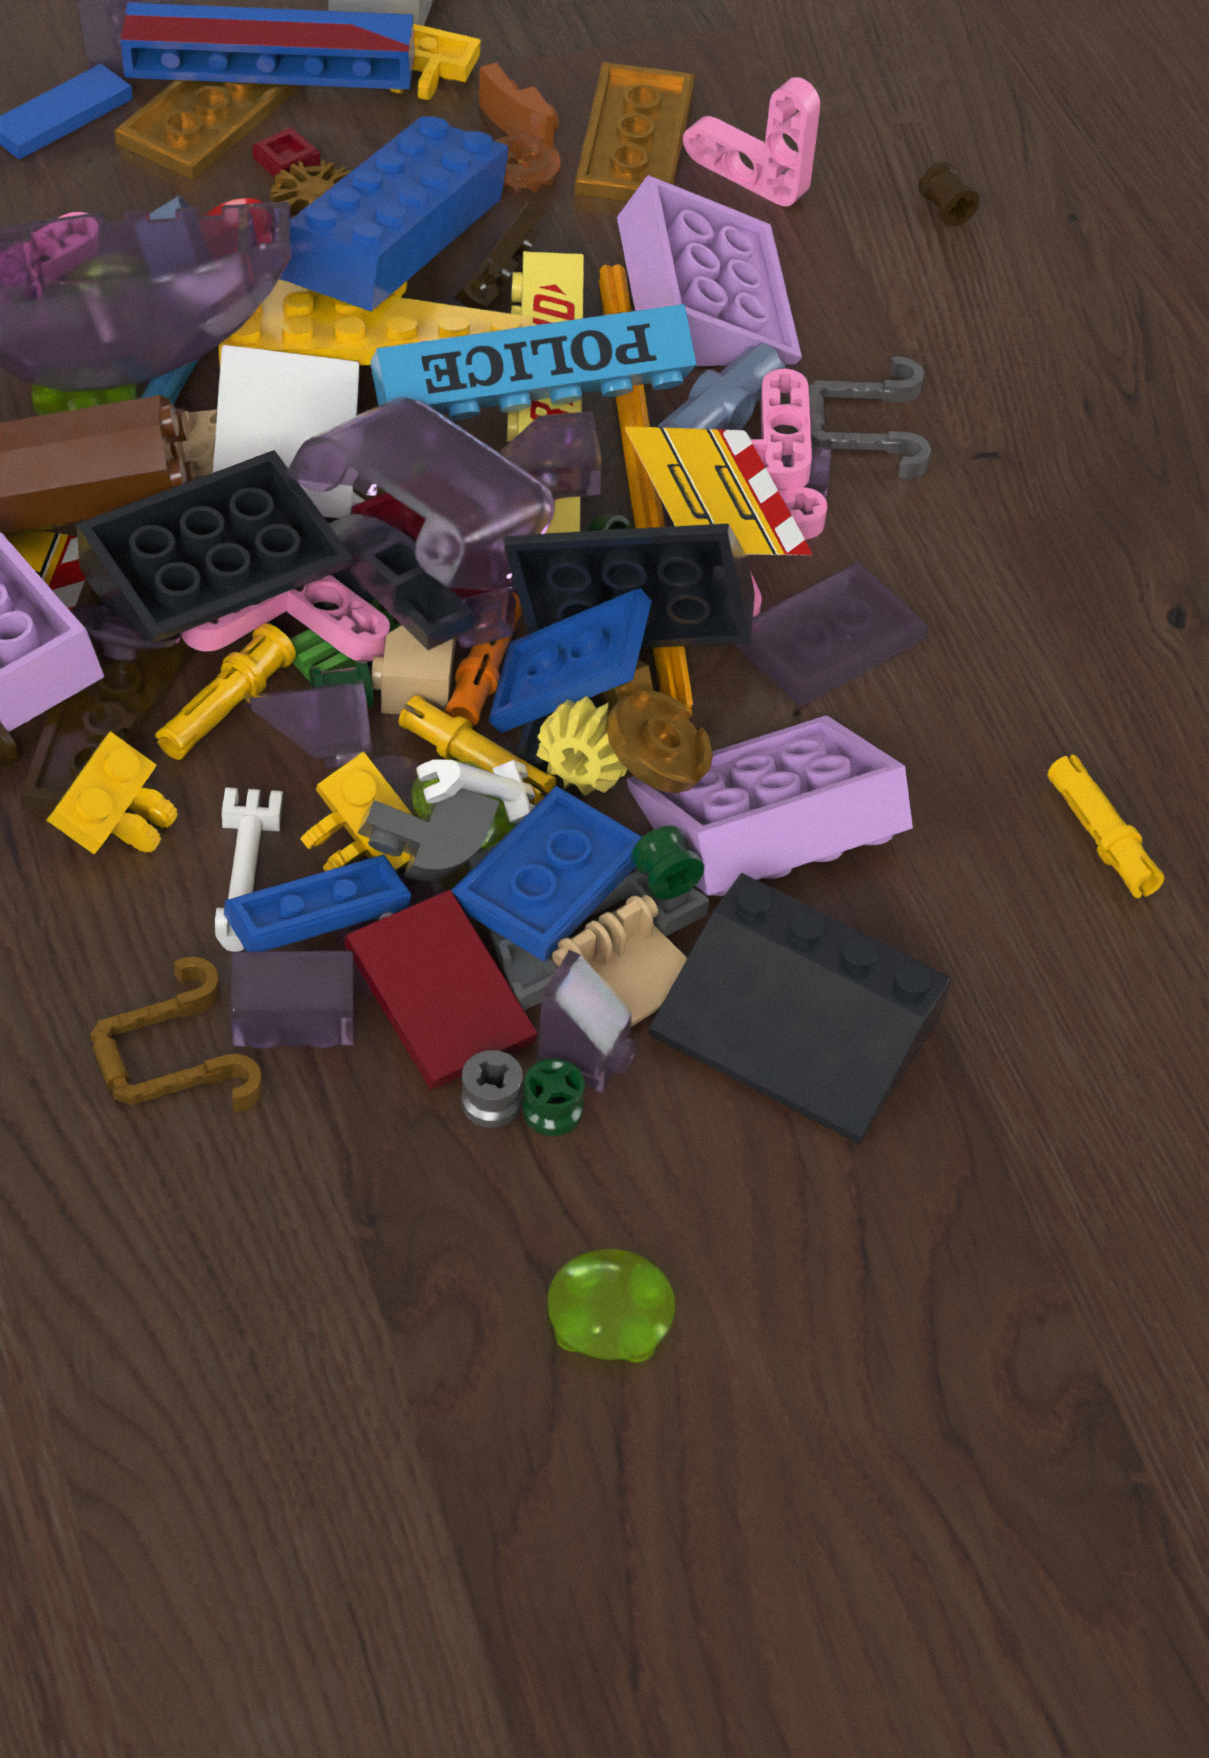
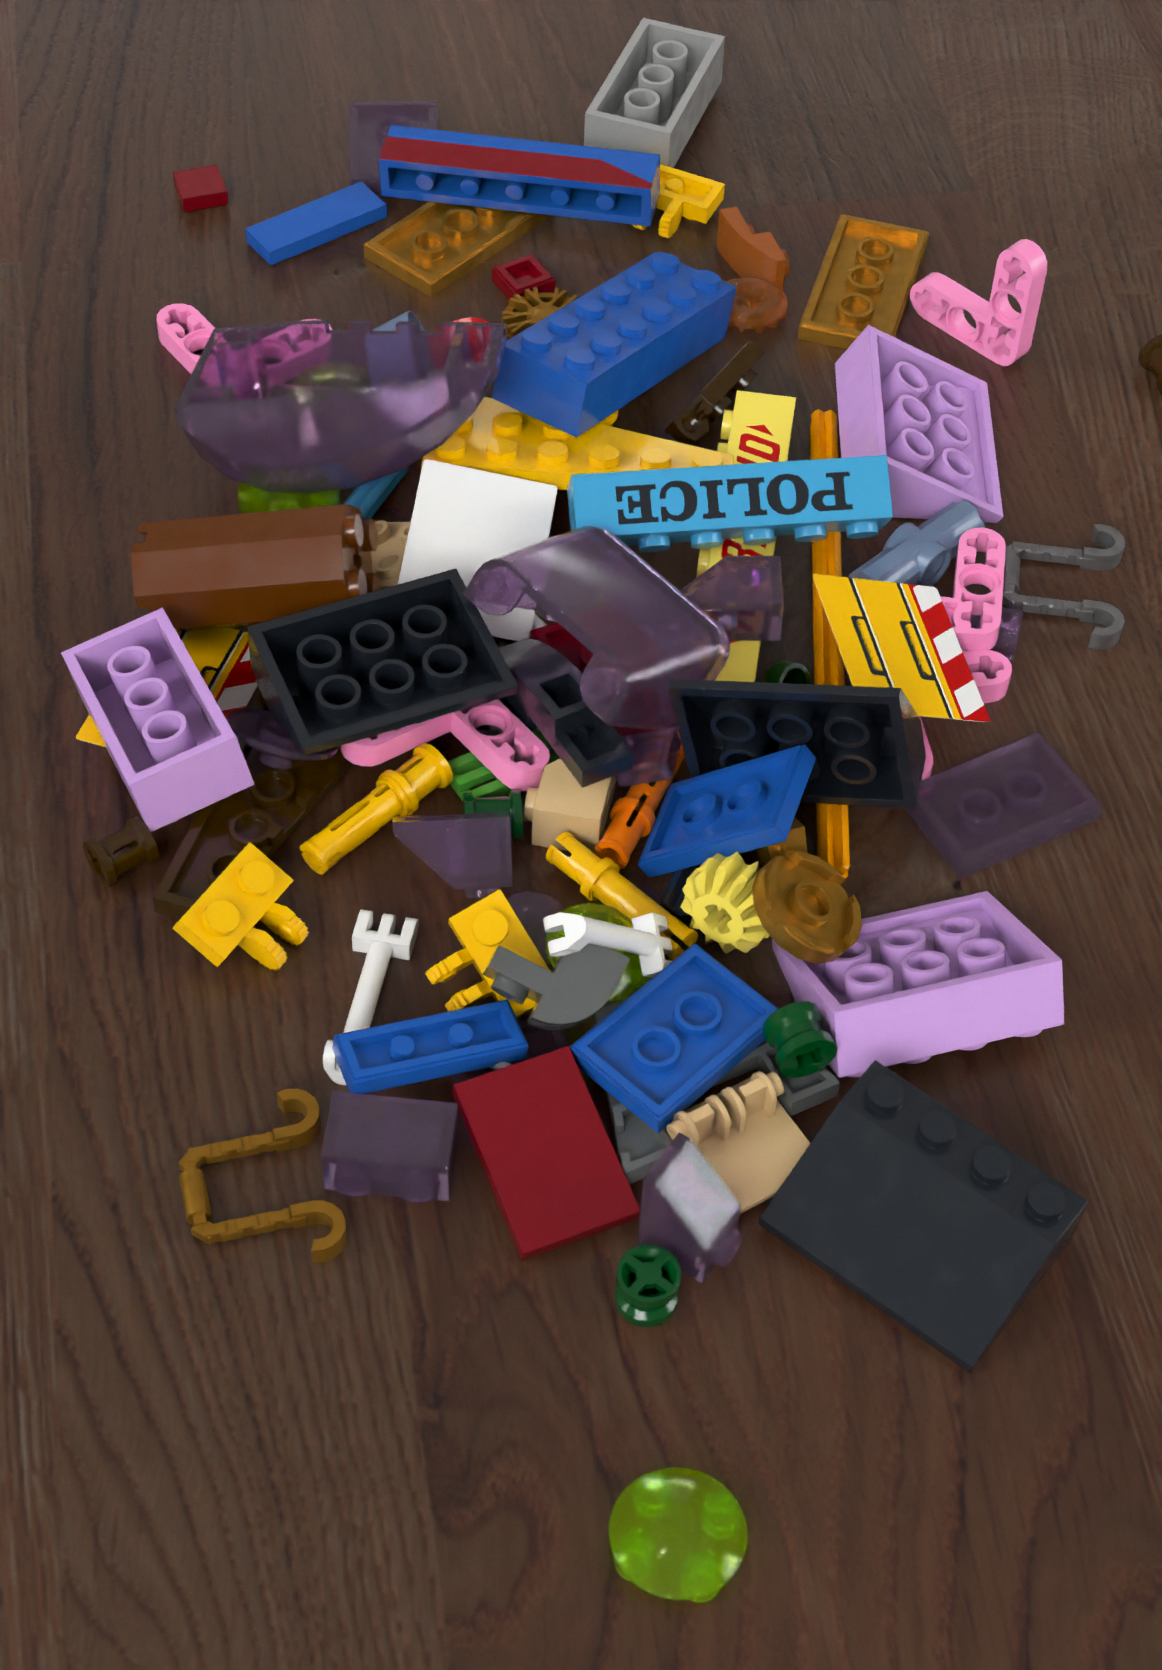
camera: 10 degrees right, 0 degrees up
(484, 1102) = (577, 1284): flat silver wheel -> none

